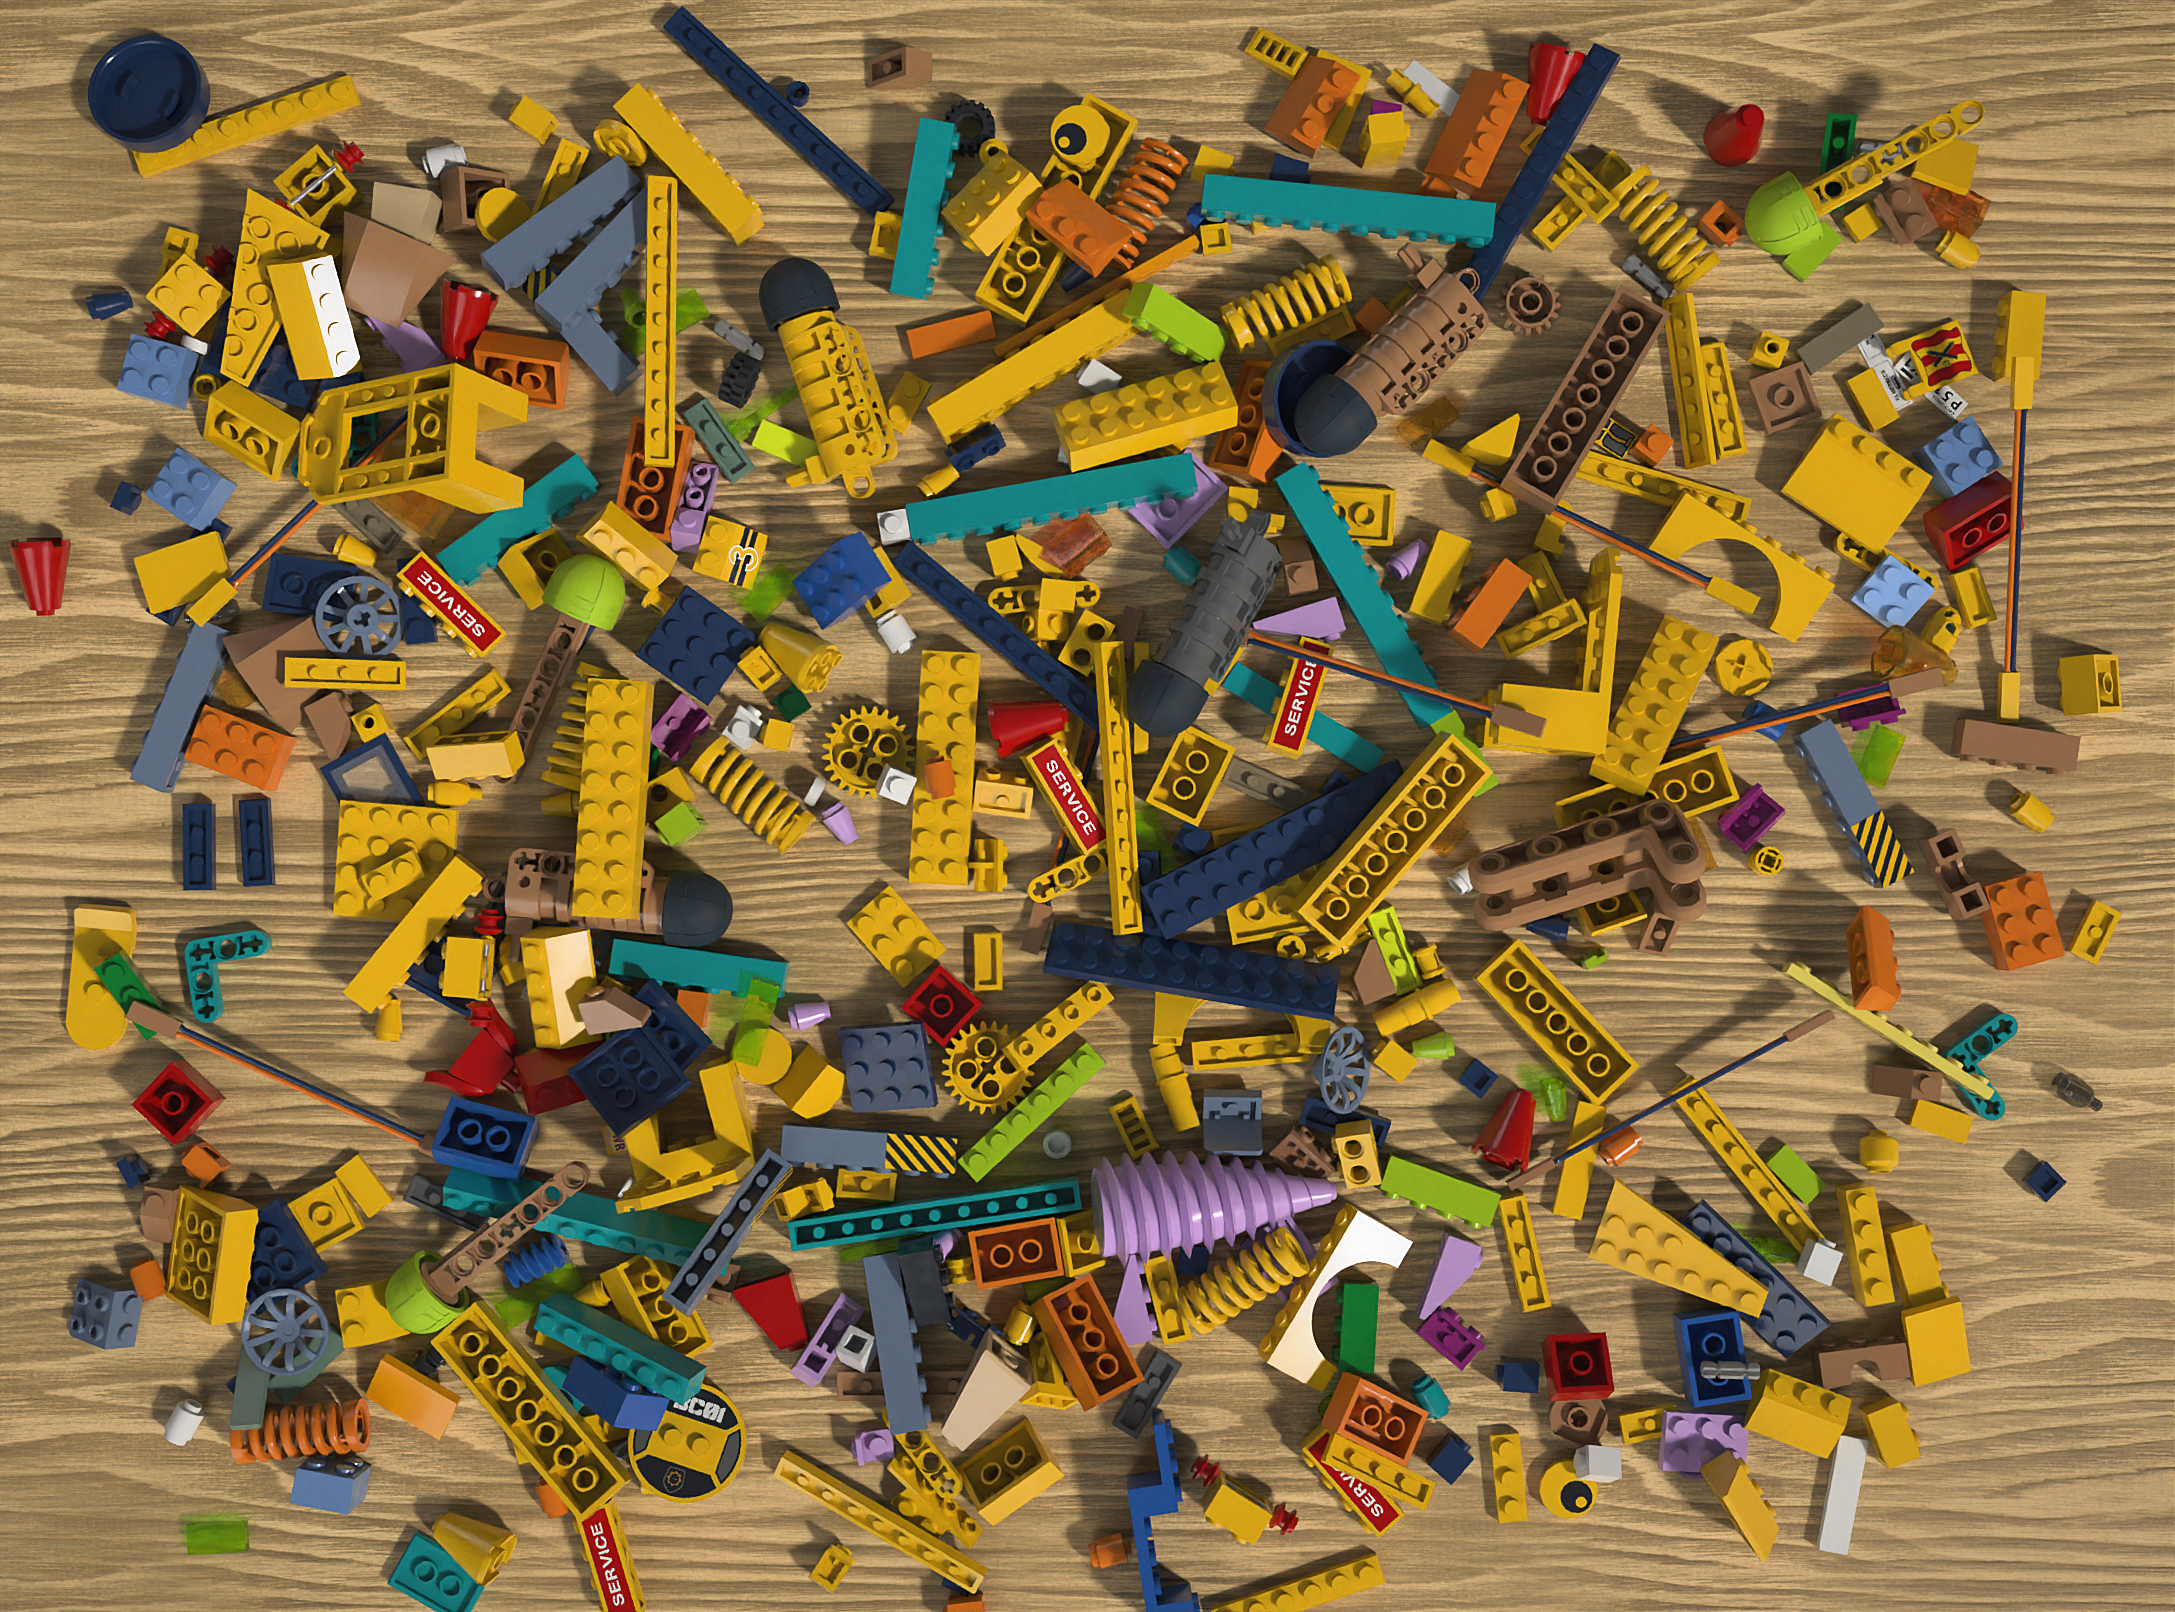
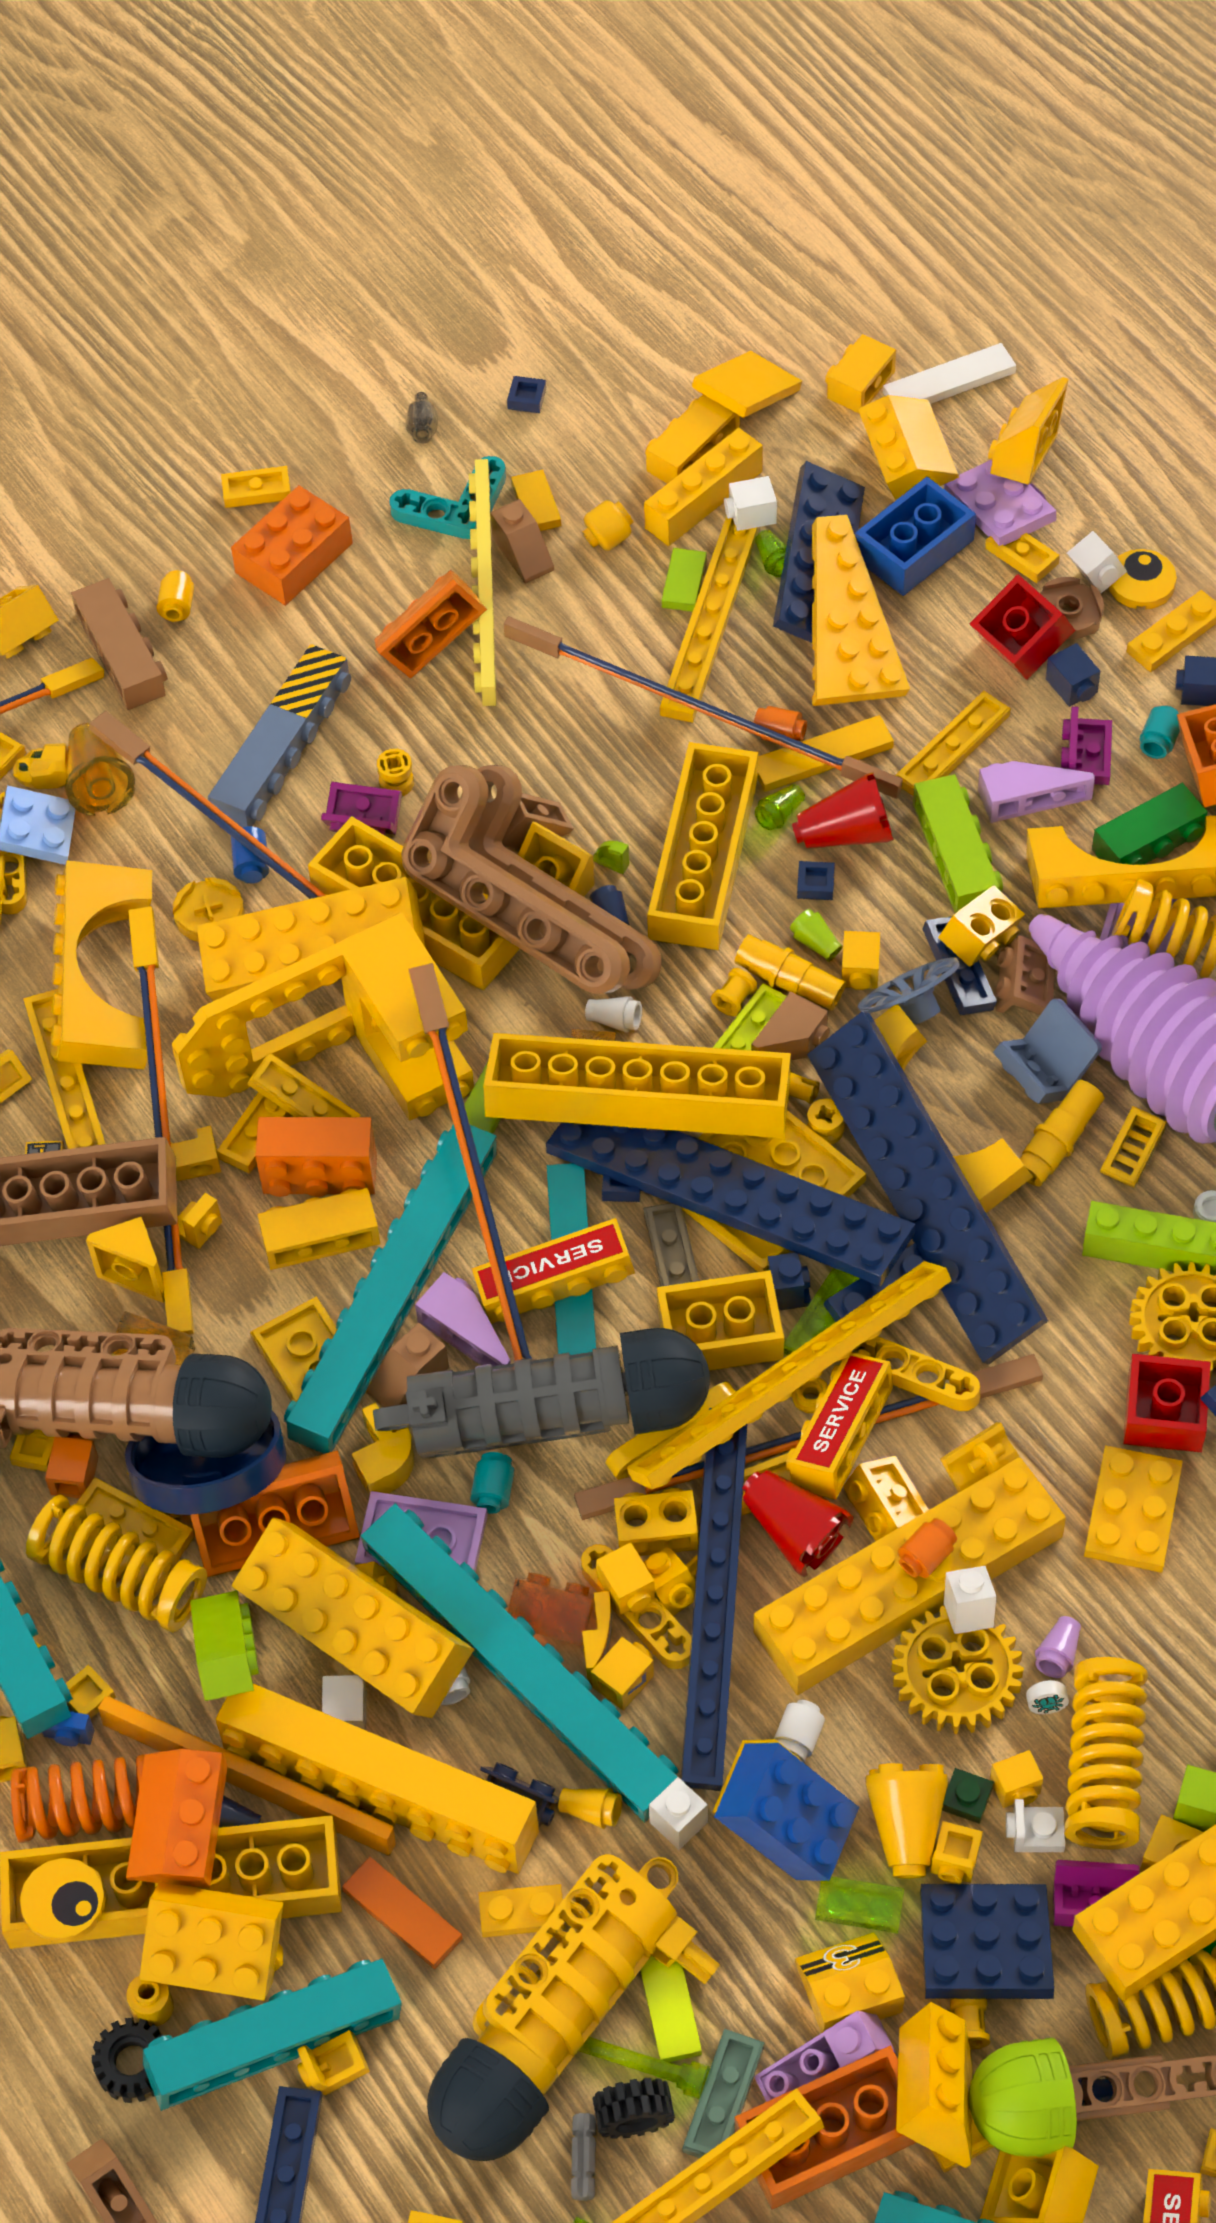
camera: 125 degrees left, 30 degrees down
(987, 961) = (1081, 1400): yellow tile -> none
(1057, 1024) = (1094, 1274): yellow brick -> none
(1246, 1051) = (965, 1094): yellow plate -> none
(1406, 560) = (322, 1272): lavender cone -> none
(1651, 446) = (29, 1118): orange brick -> none
(1730, 1370) = (916, 503): light grey axle -> none
(1835, 1361) = (831, 447): medium nougat arch -> none
(1861, 714) = (158, 790): magenta bracket -> none
(1880, 756) = (210, 745): clear neon green plate -> none
(1944, 858) = (303, 599): medium nougat arch -> none

